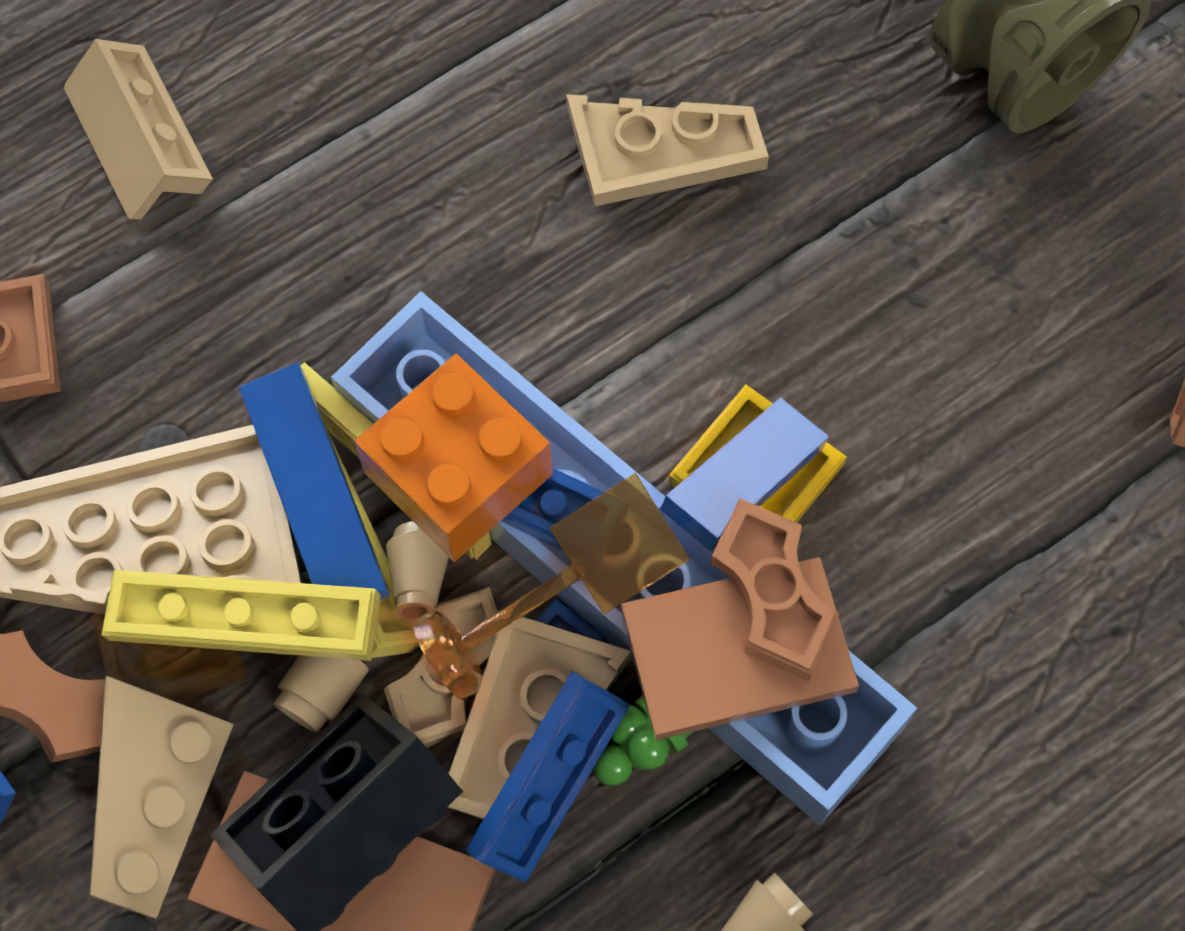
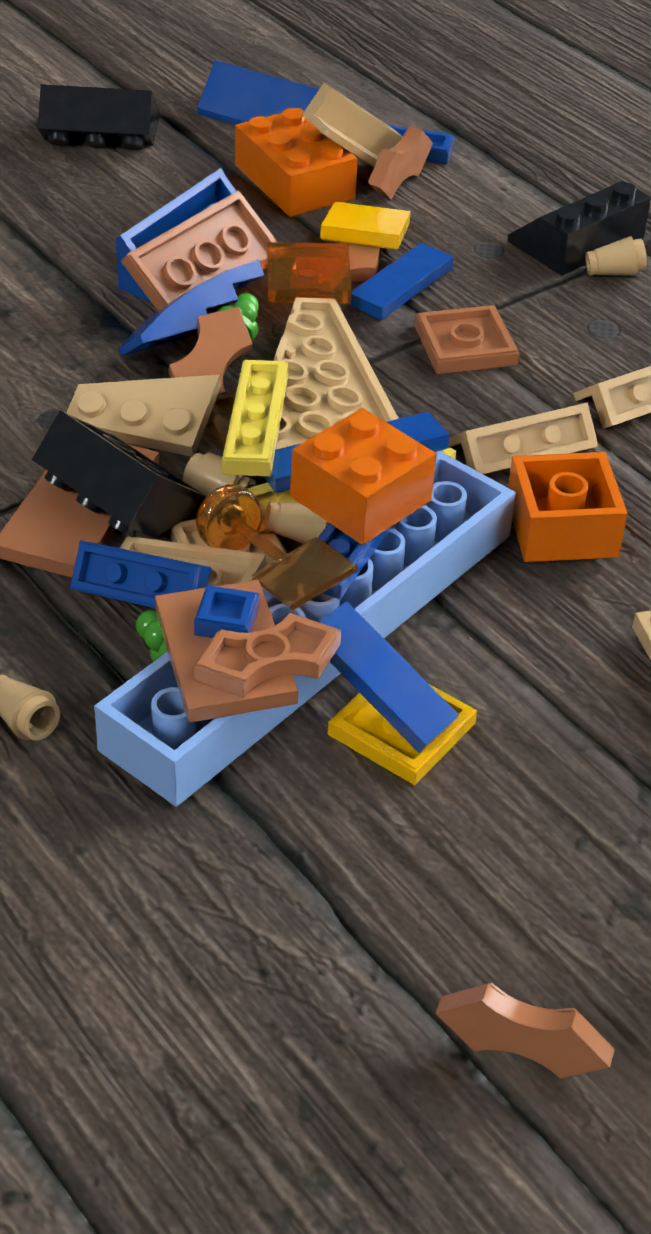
camera: 85 degrees right, 25 degrees down
(236, 287) = (552, 432): none -> tan panel
(408, 238) = (566, 507): none -> orange brick
(702, 638) = (225, 610): none -> blue tile

